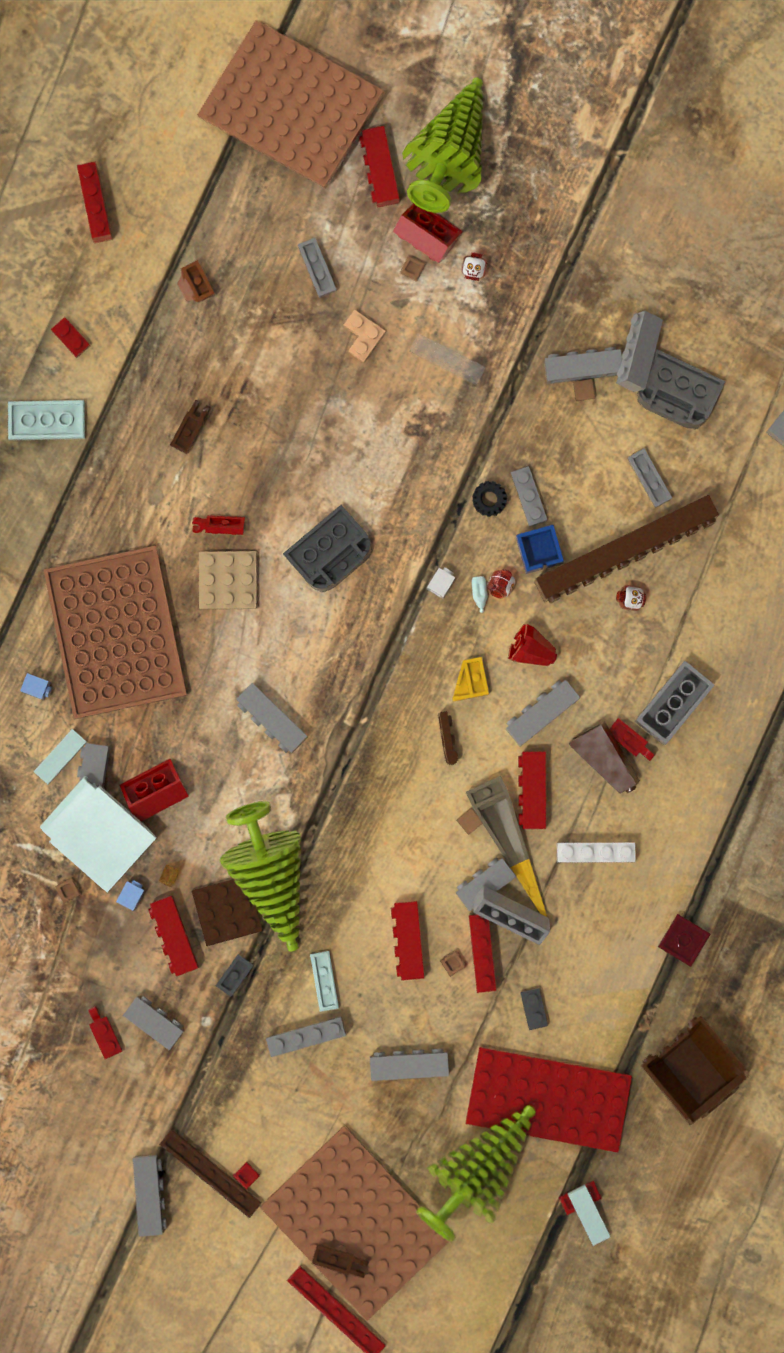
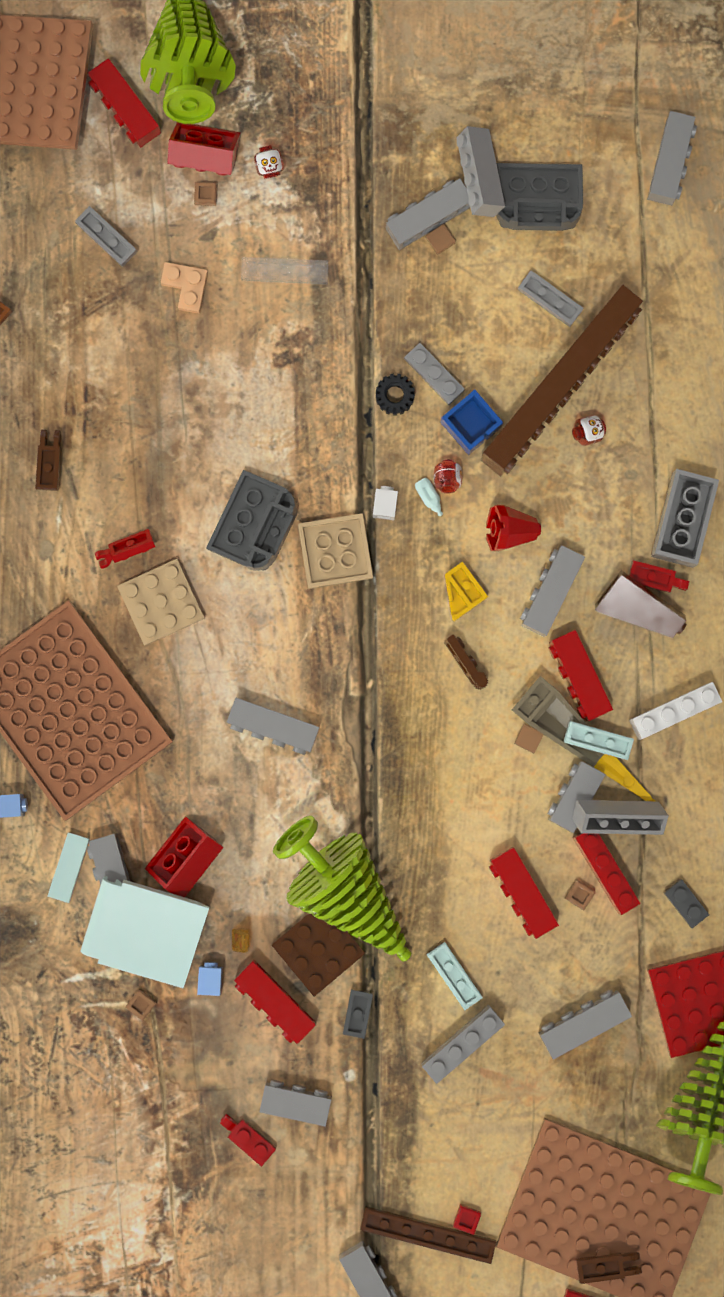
camera: 30 degrees left, 0 degrees up
(384, 602) = (335, 551): none -> tan plate
(523, 847) = (598, 740): none -> light aqua tile

